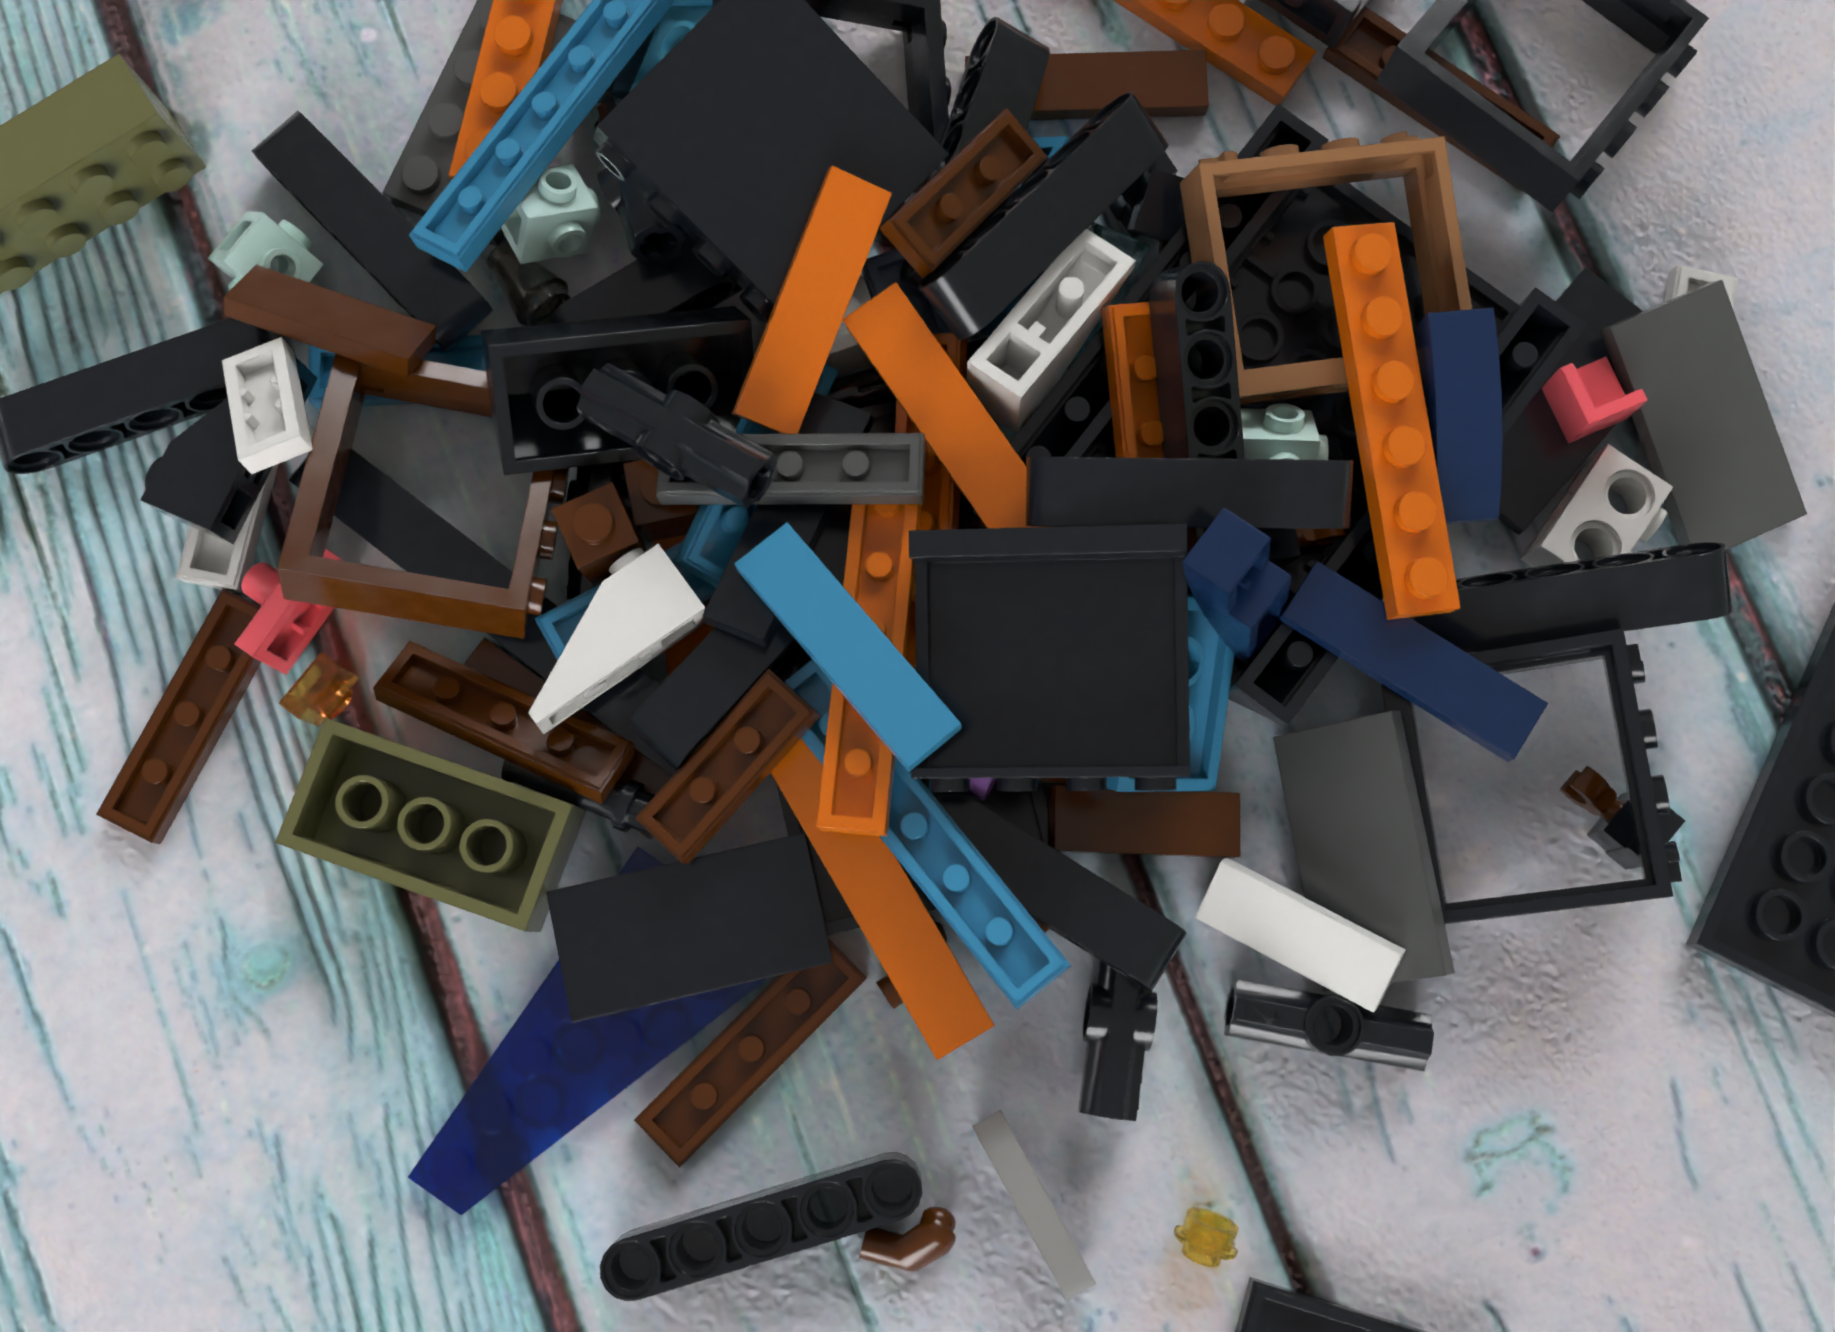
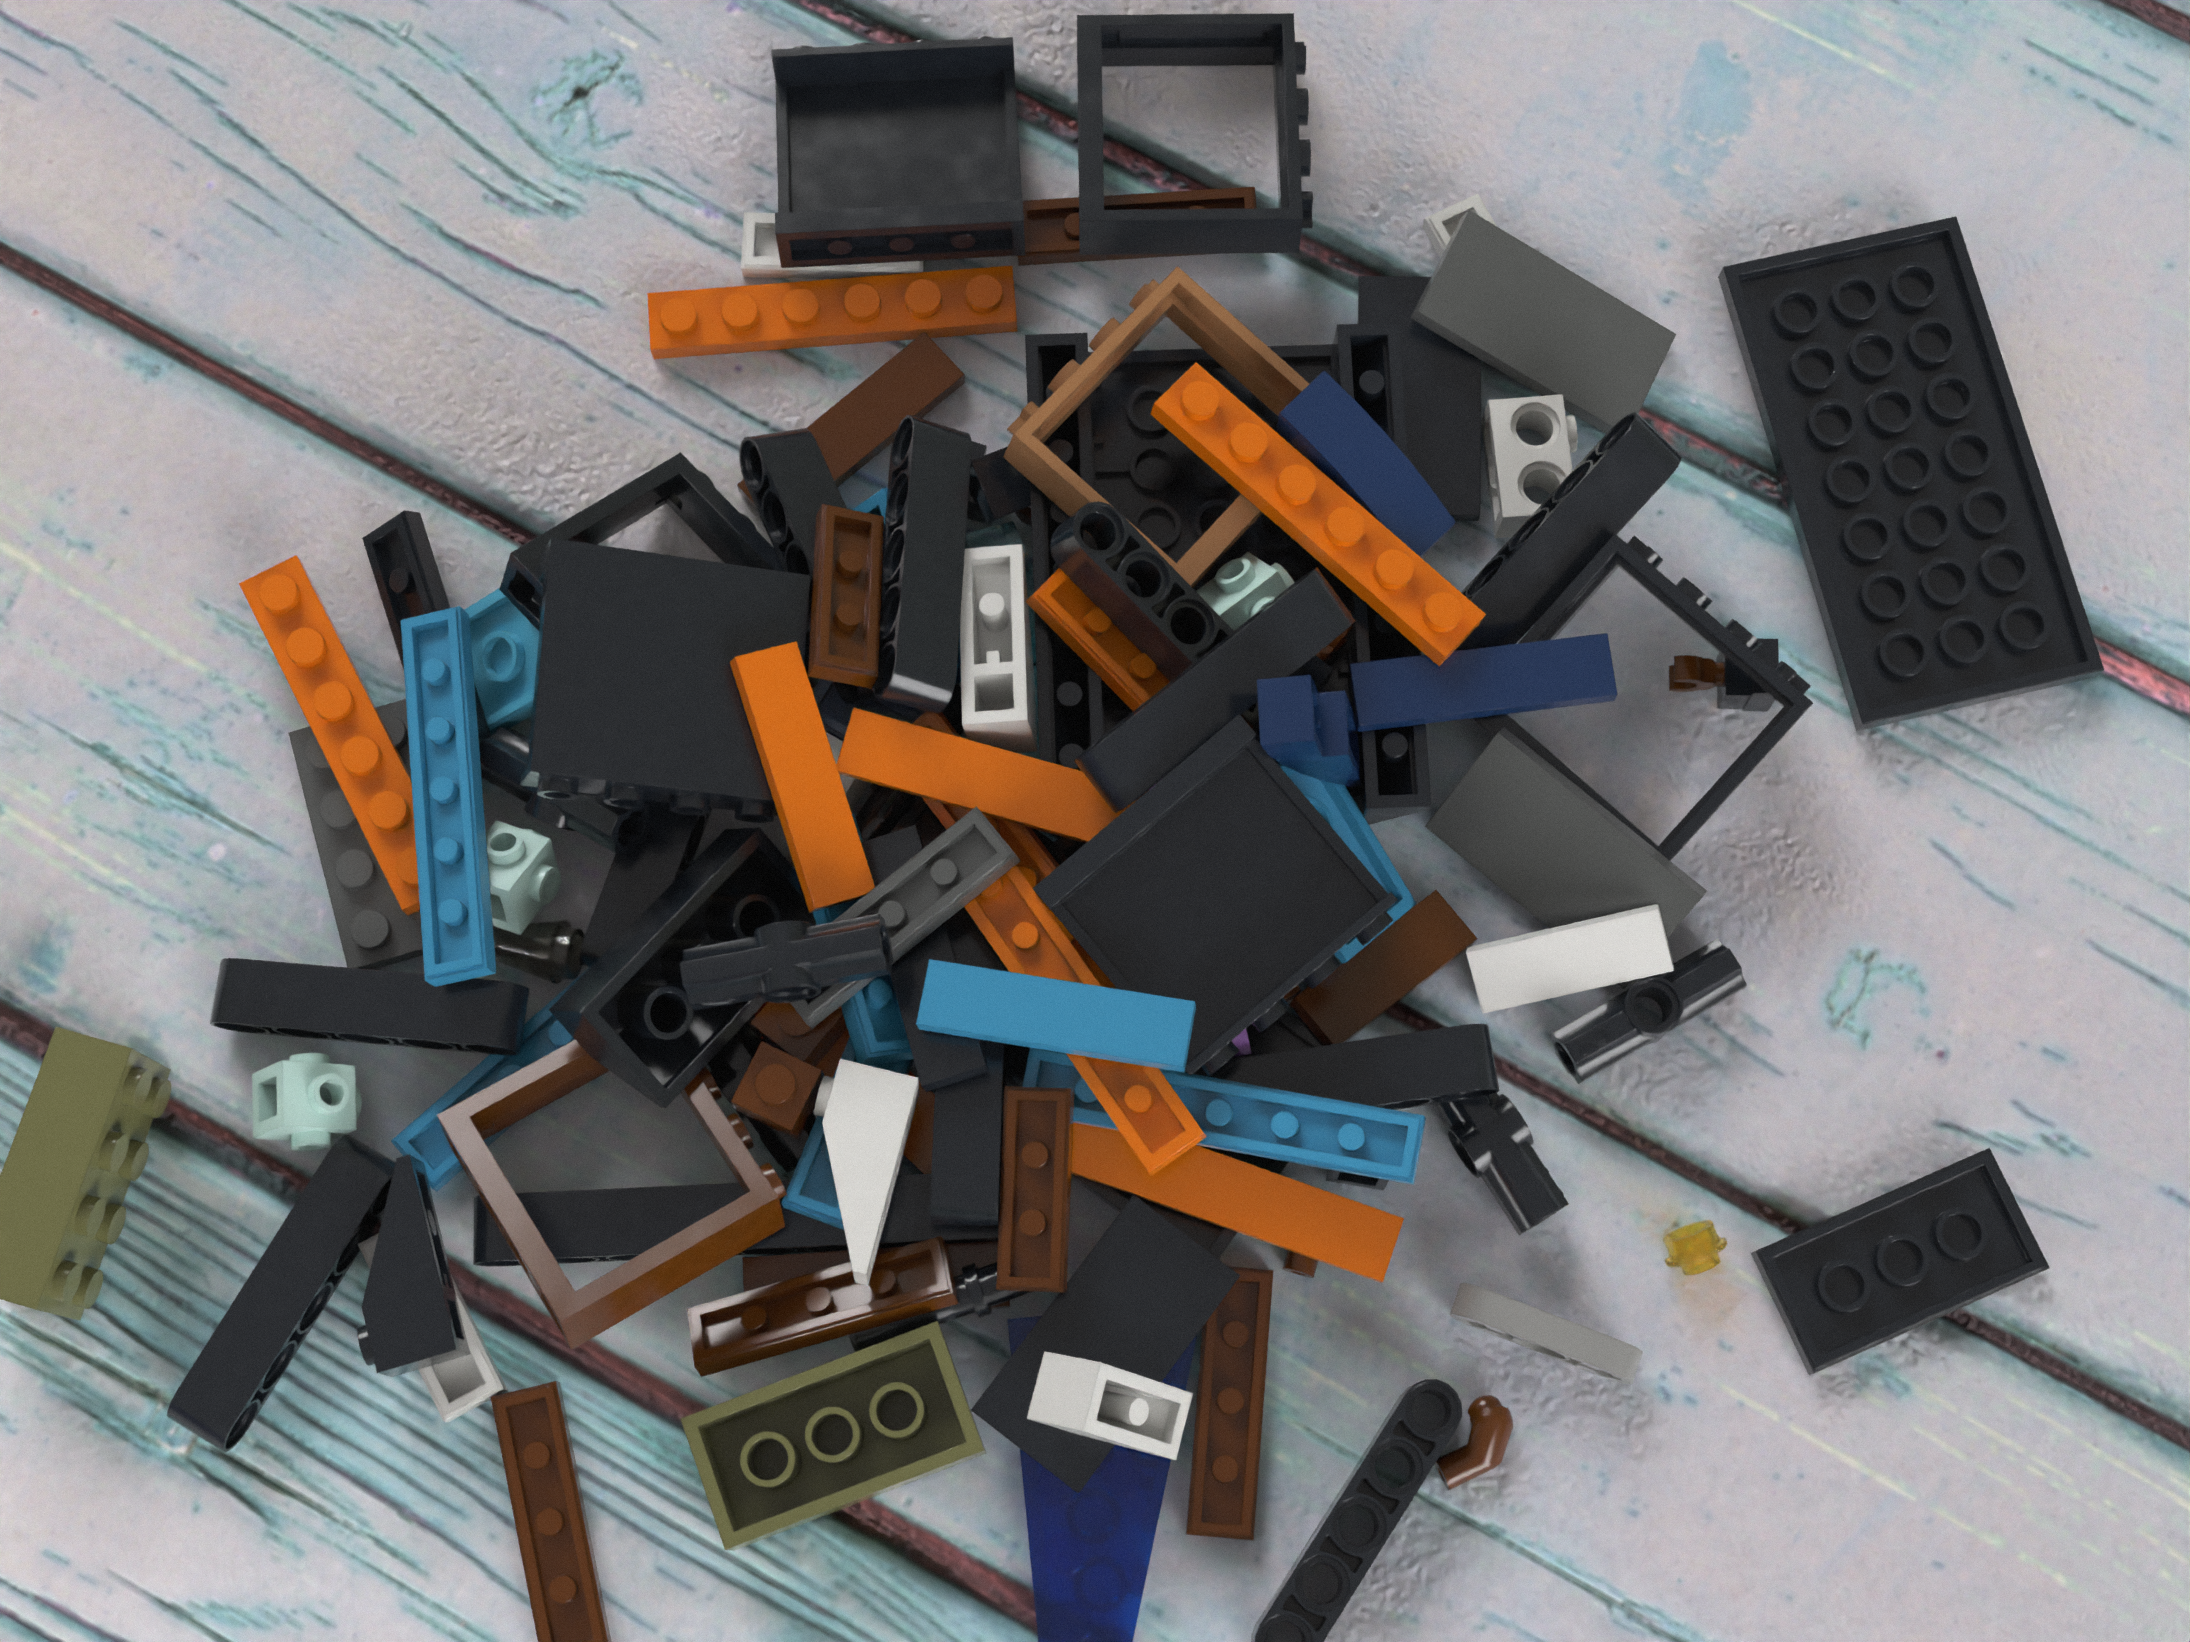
camera: 40 degrees left, 5 degrees down
(266, 406) = (426, 1208): white tile -> none
(281, 625) = (567, 1373): coral tile -> none
(320, 691) = (648, 1409): clear orange plate -> none
(330, 320) = (414, 1101): reddish brown tile -> none
(643, 978) = (1109, 1405): none -> white slope
(1589, 399) = (1446, 376): coral panel -> none

